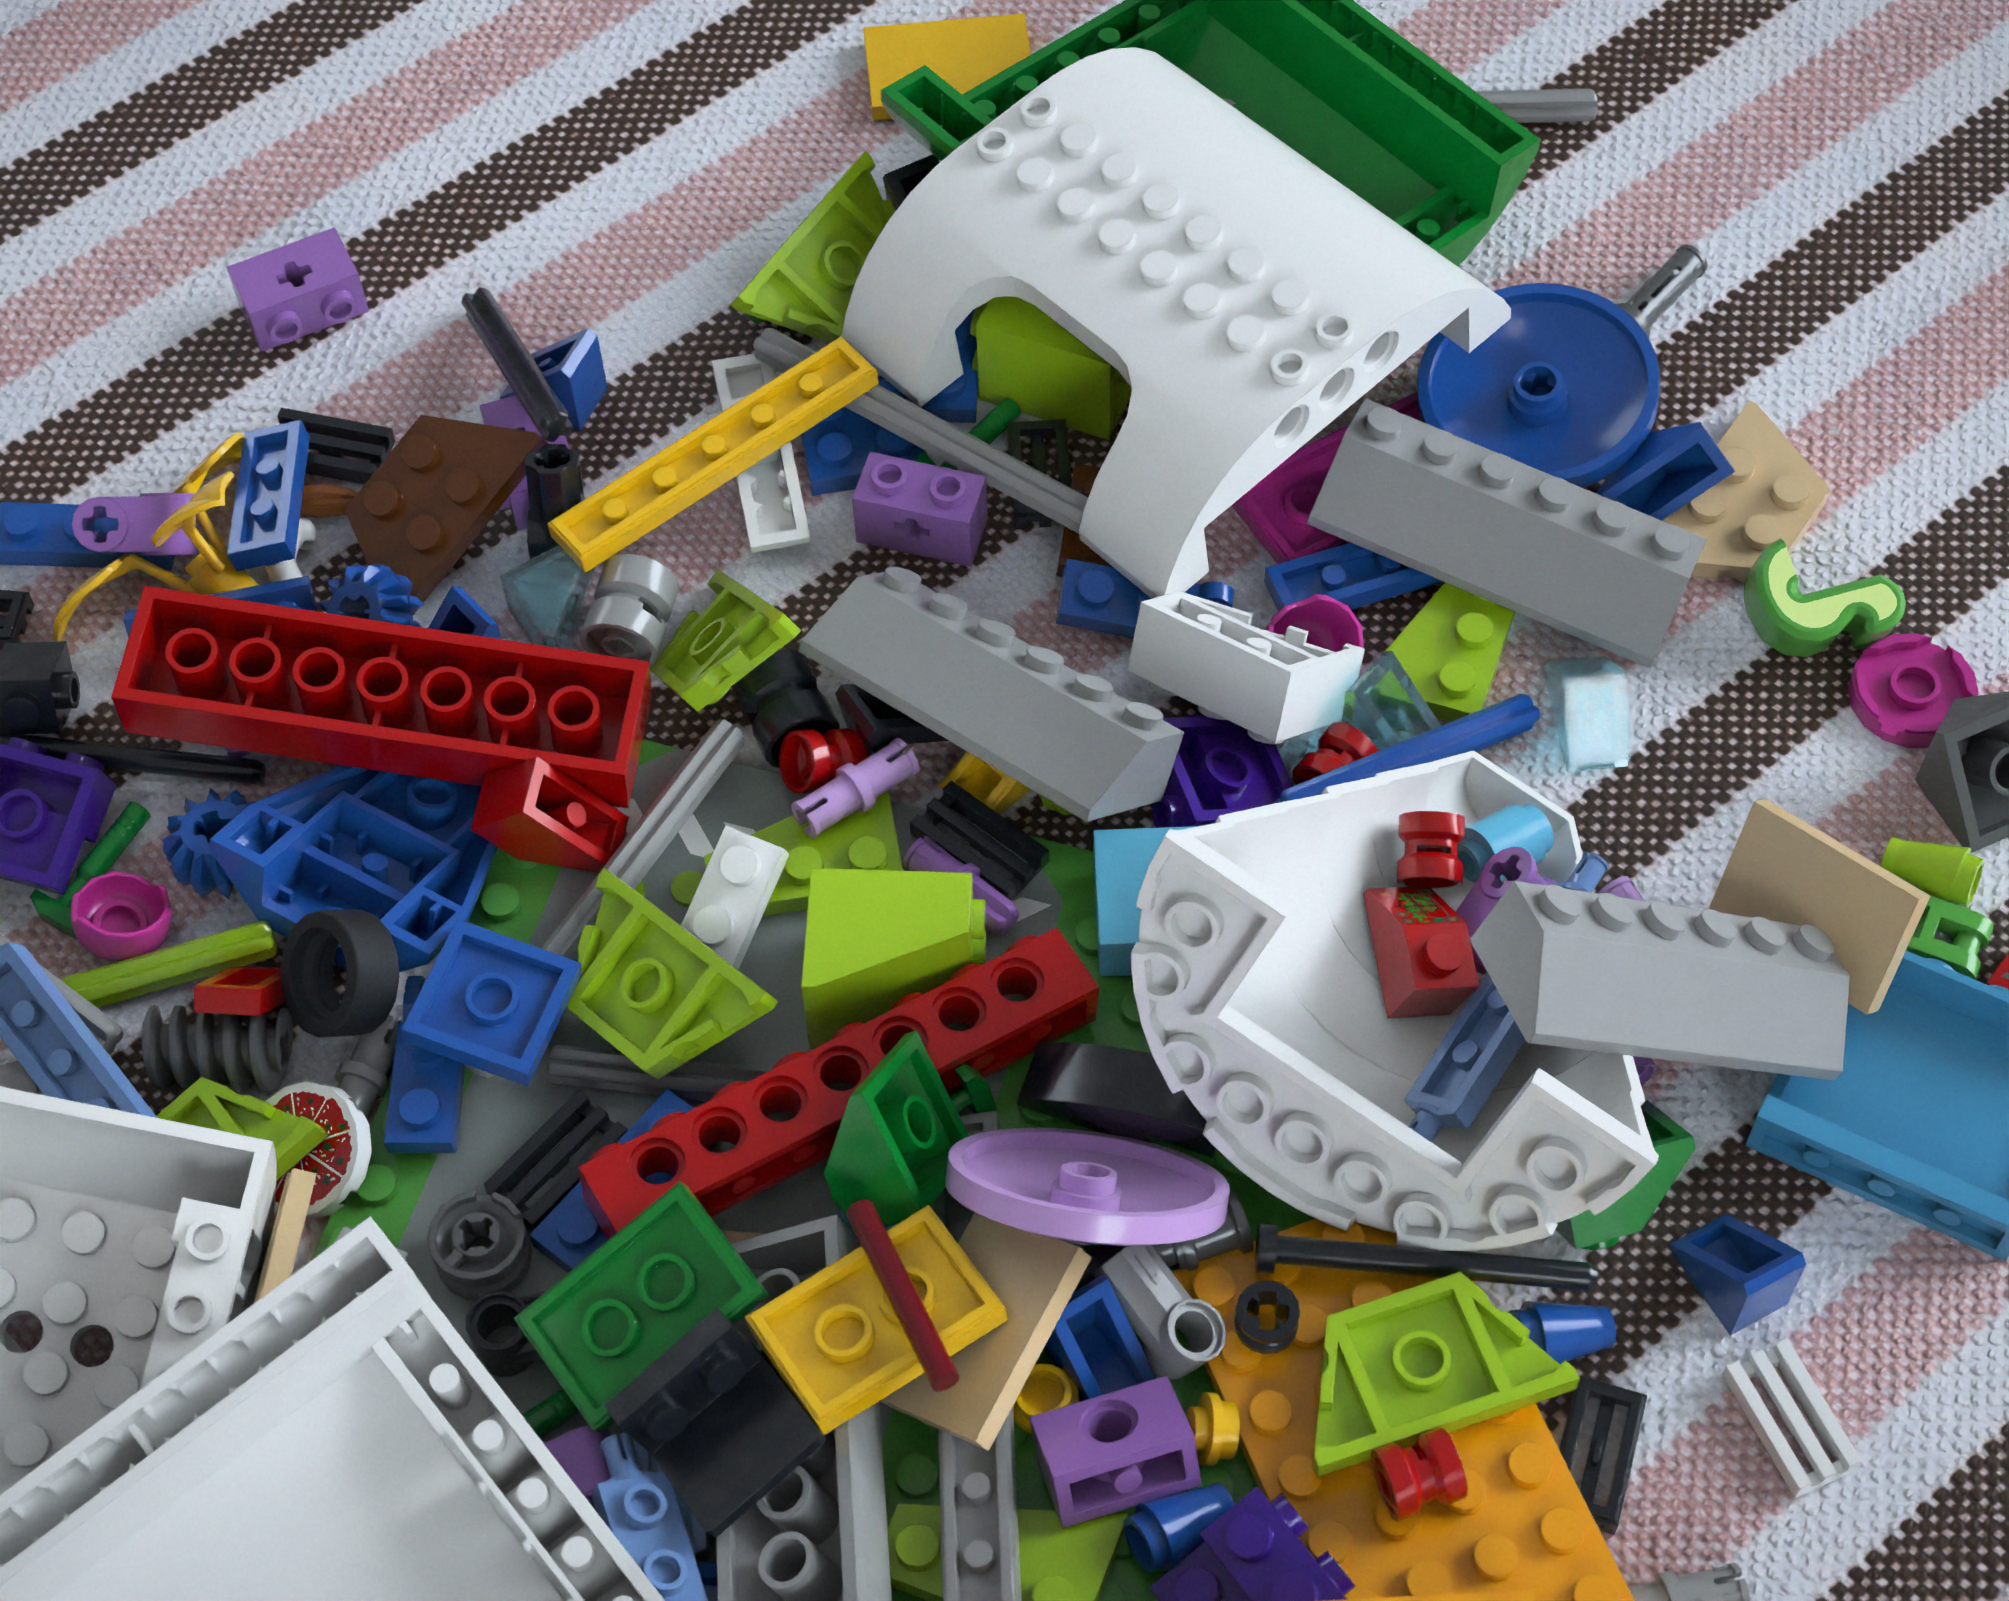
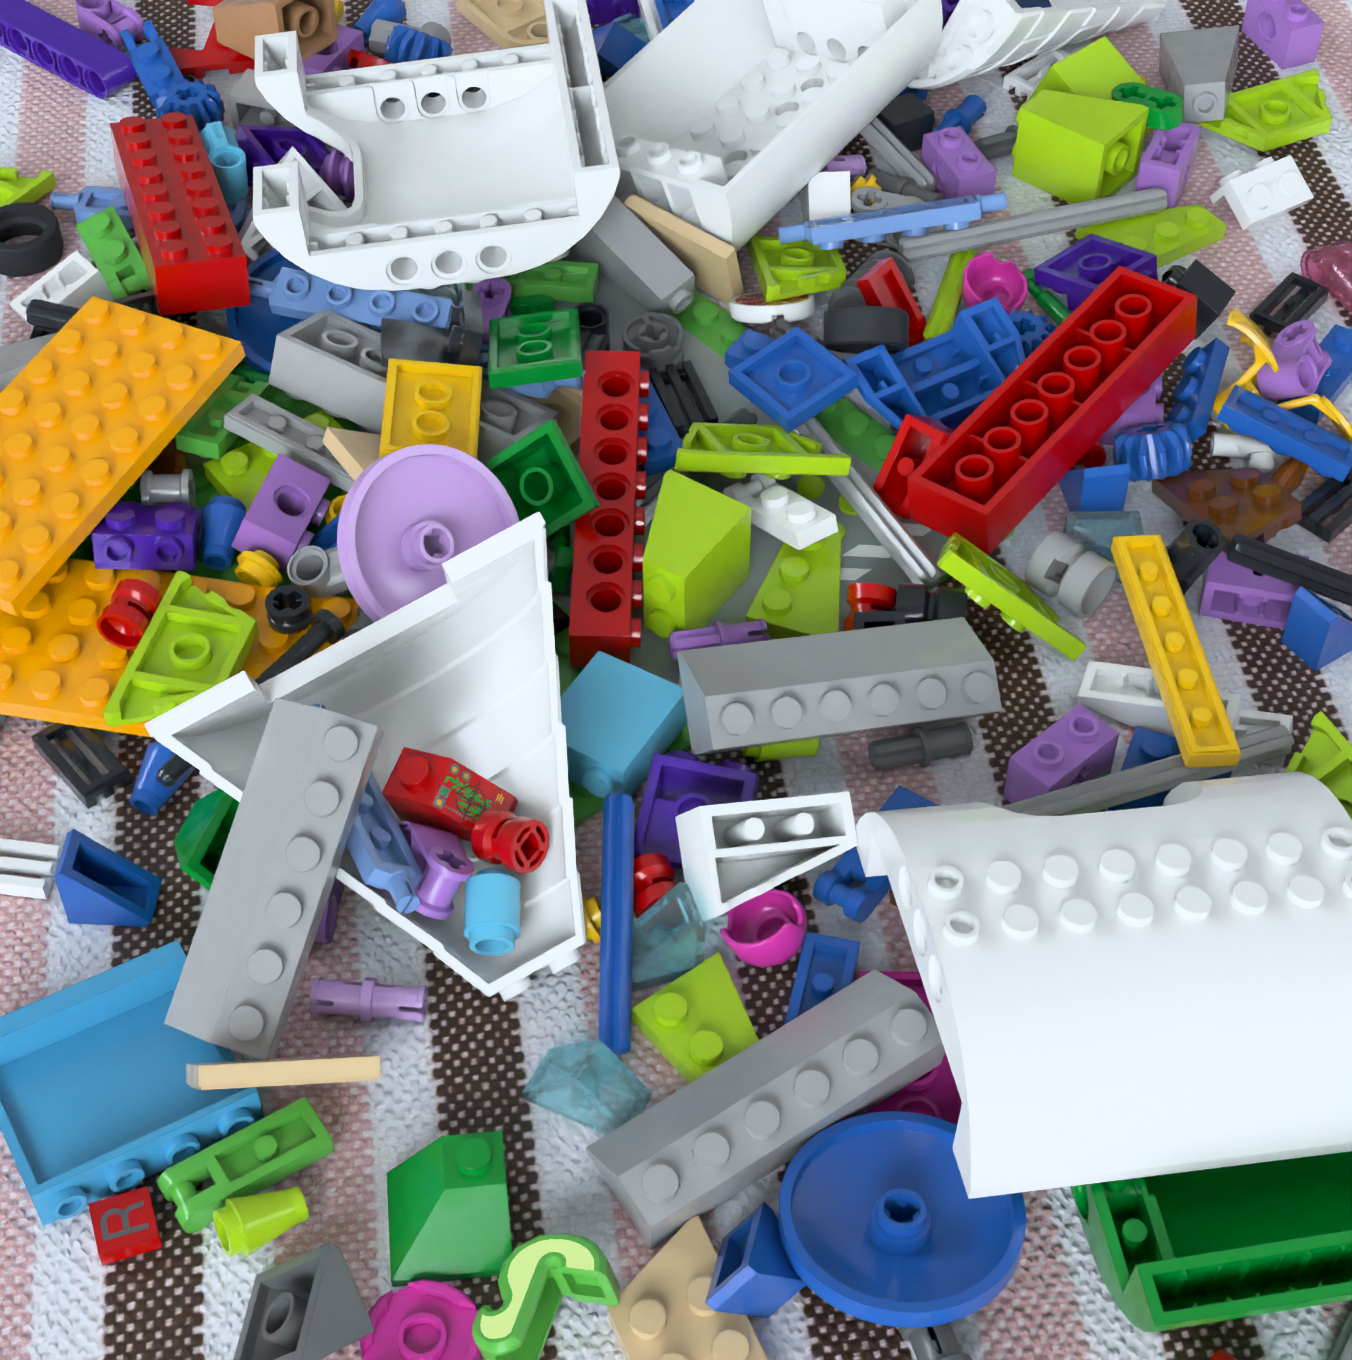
camera: 120 degrees right, 10 degrees down
(855, 788) = (827, 604): lavender pin -> none
(903, 1295) = (425, 411): dark red bar -> none
(1789, 736) = (450, 1210): none -> green slope

